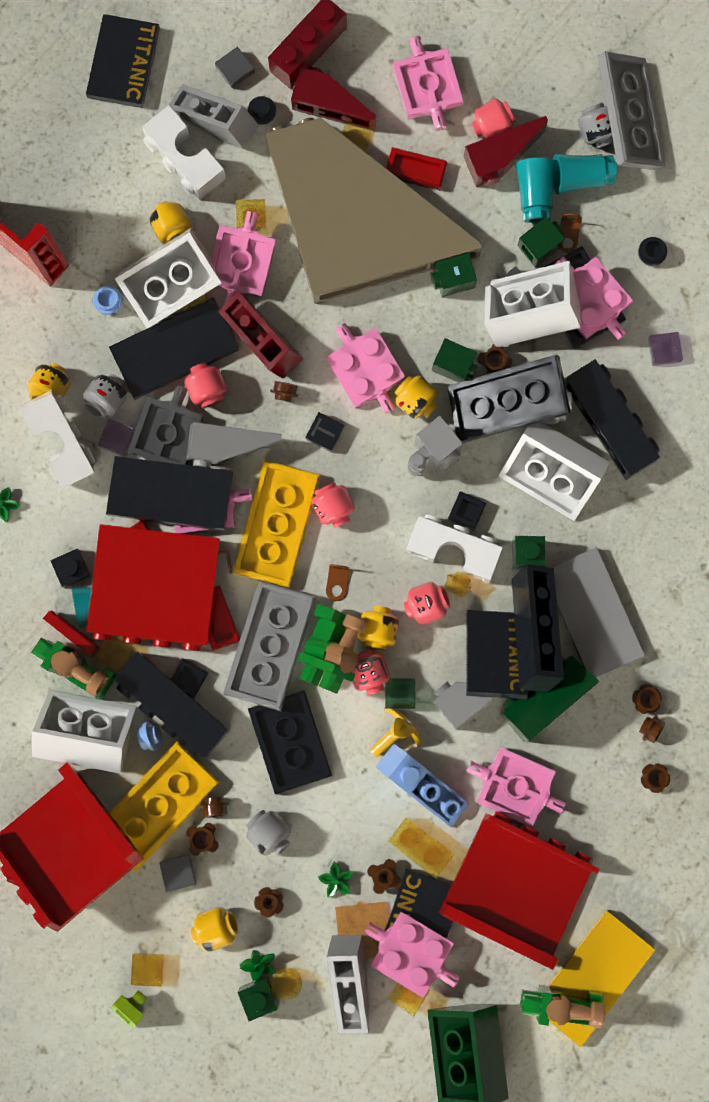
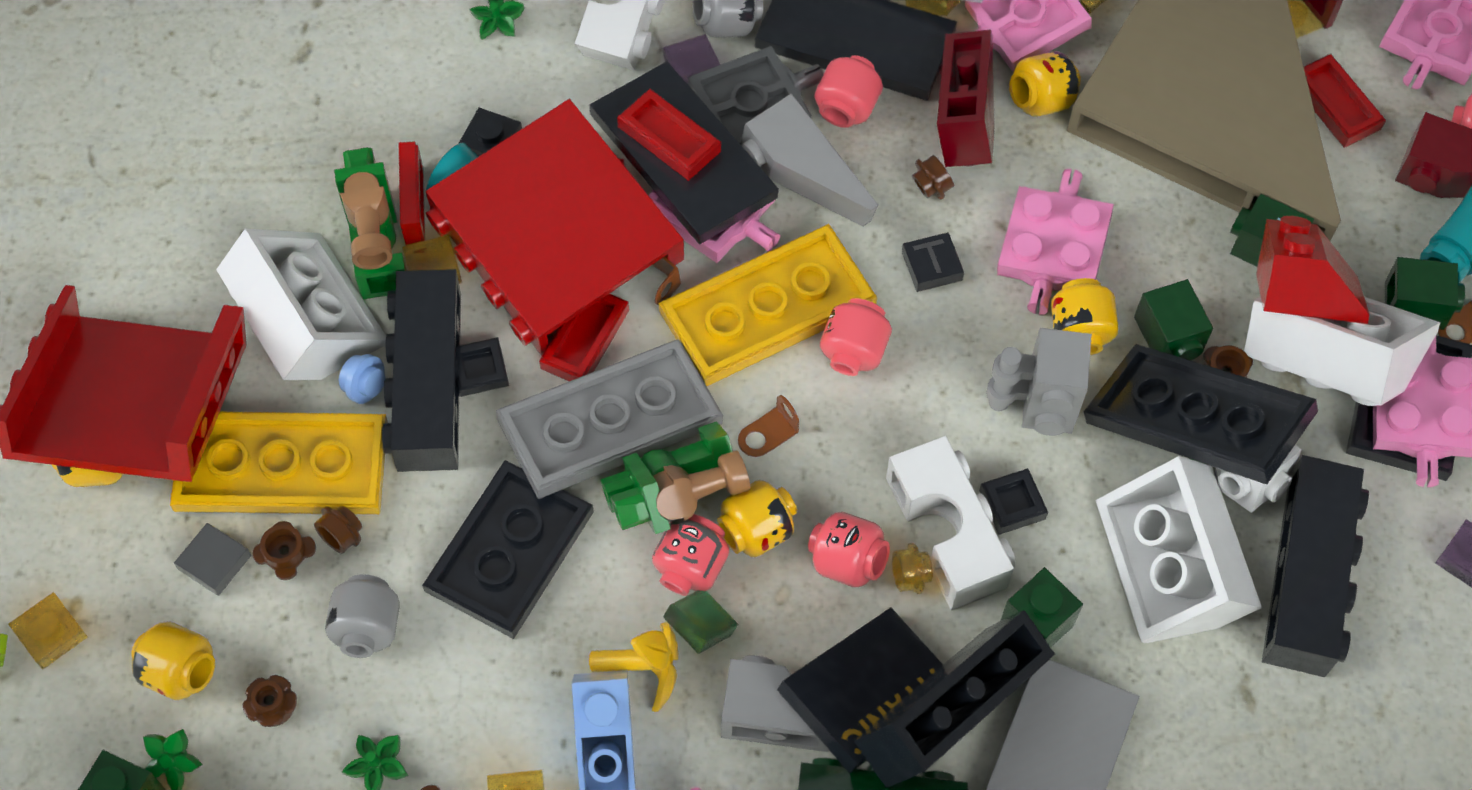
camera: 45 degrees right, 20 degrees down
(158, 494) = (669, 134): none -> red tile
(286, 293) = (1045, 84): none -> yellow head
(496, 291) = (1306, 274): none -> red slope

